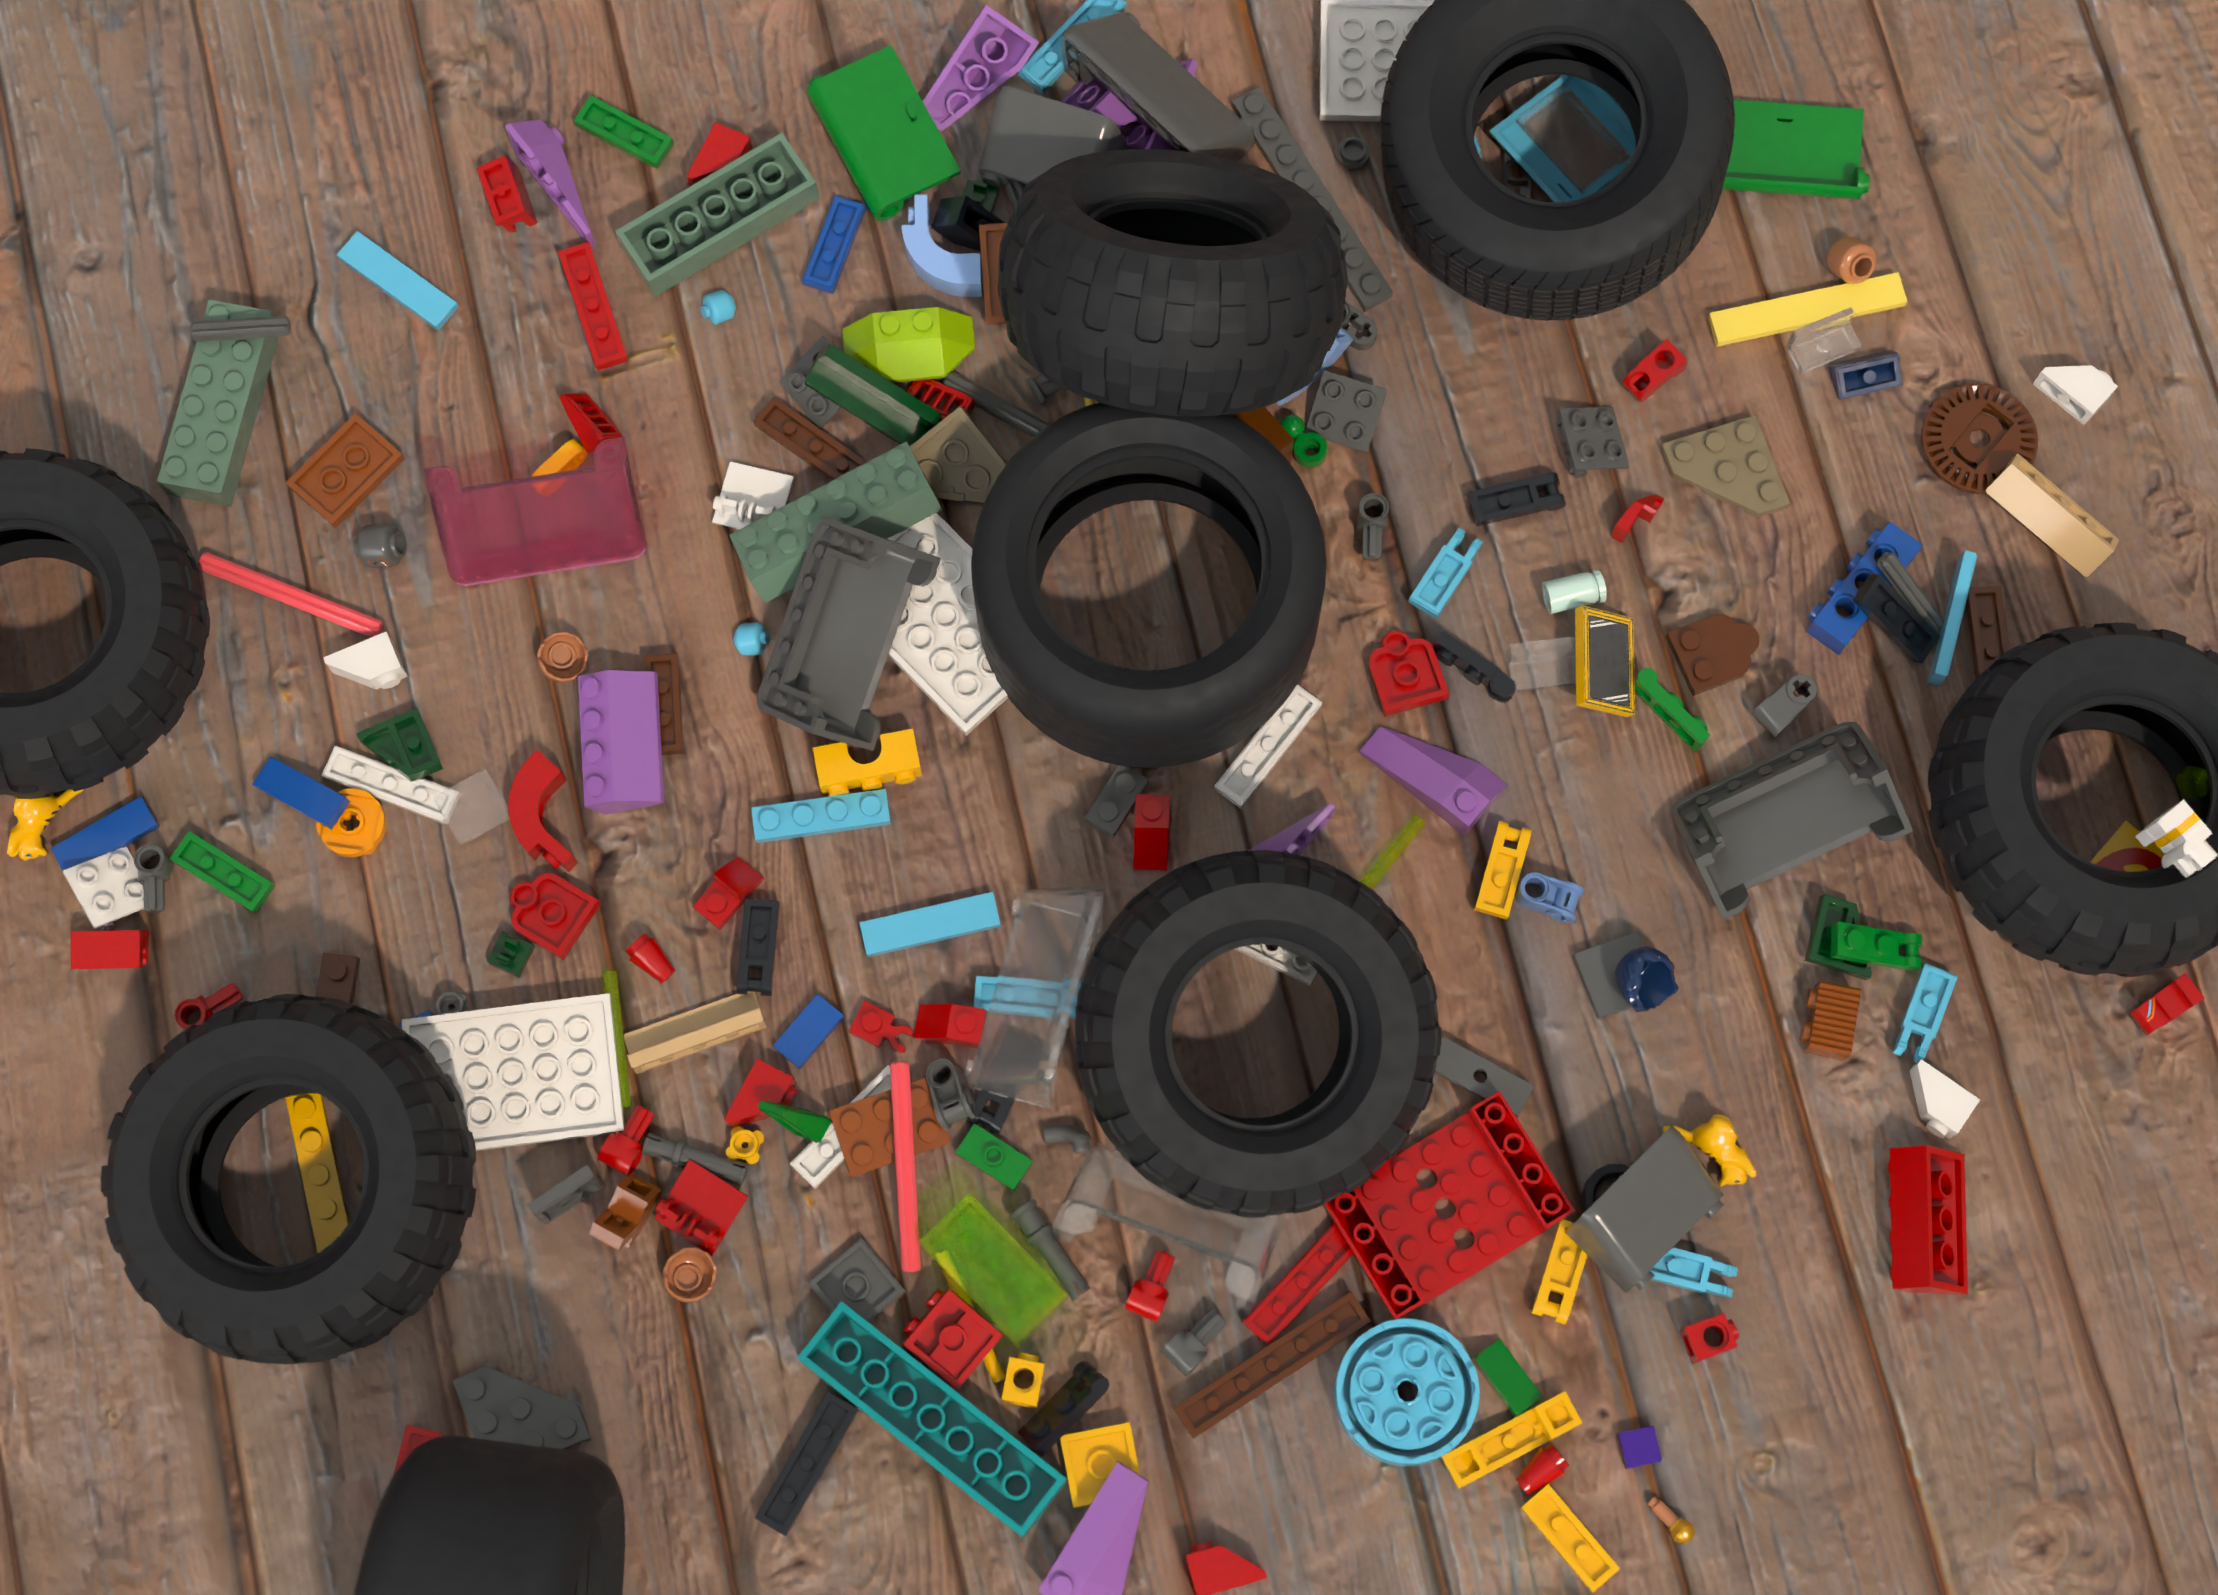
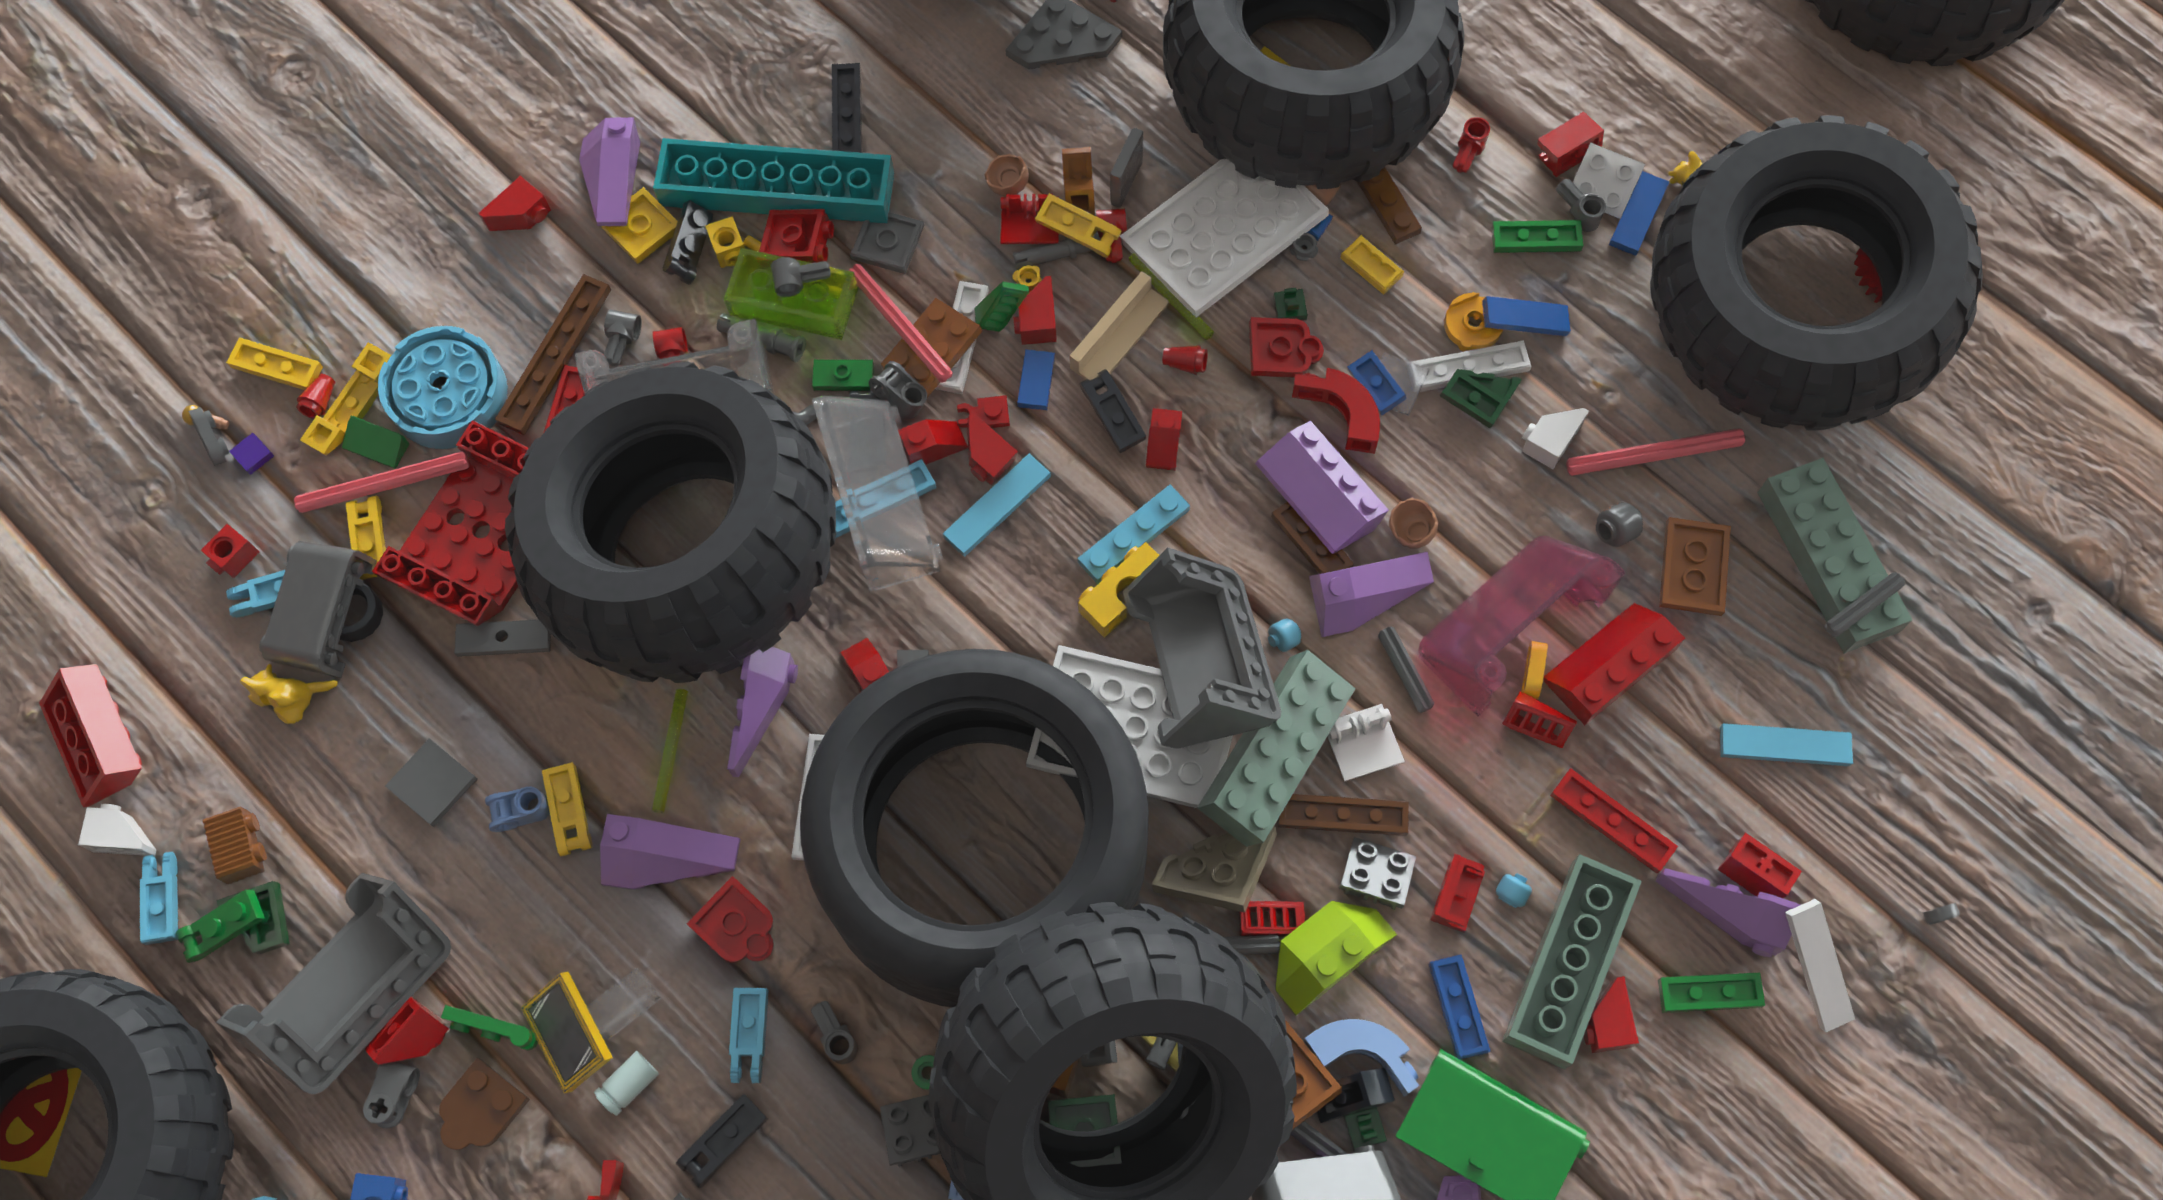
camera: 150 degrees right, 5 degrees down
(390, 78) = (1941, 913): none -> dark grey tile
(401, 944) = (1372, 264): none -> yellow plate
(485, 431) = (1613, 661): none -> red slope
(491, 813) = (1377, 381): none -> blue plate
(525, 88) = (1820, 965): none -> white tile
(659, 629) = (1360, 593): none -> medium lavender wedge
(660, 1157) = (1077, 225): none -> yellow plate
(668, 539) = (1406, 669): none -> dark grey axle
(769, 329) = (1458, 893): none -> red hinge
(870, 397) = (1325, 873): dark green panel -> none
(907, 976) = (987, 451): none -> red slope
(986, 1267) = (790, 276): none -> dark grey axle
(1474, 667) = (678, 962): black hinge -> none
(1520, 1319) = (381, 482): none -> coral axle
(1646, 978) = (402, 781): dark blue hair -> none
(1675, 1499) = (203, 424): none -> dark grey plate
(1747, 740) = (407, 1034): none -> red slope

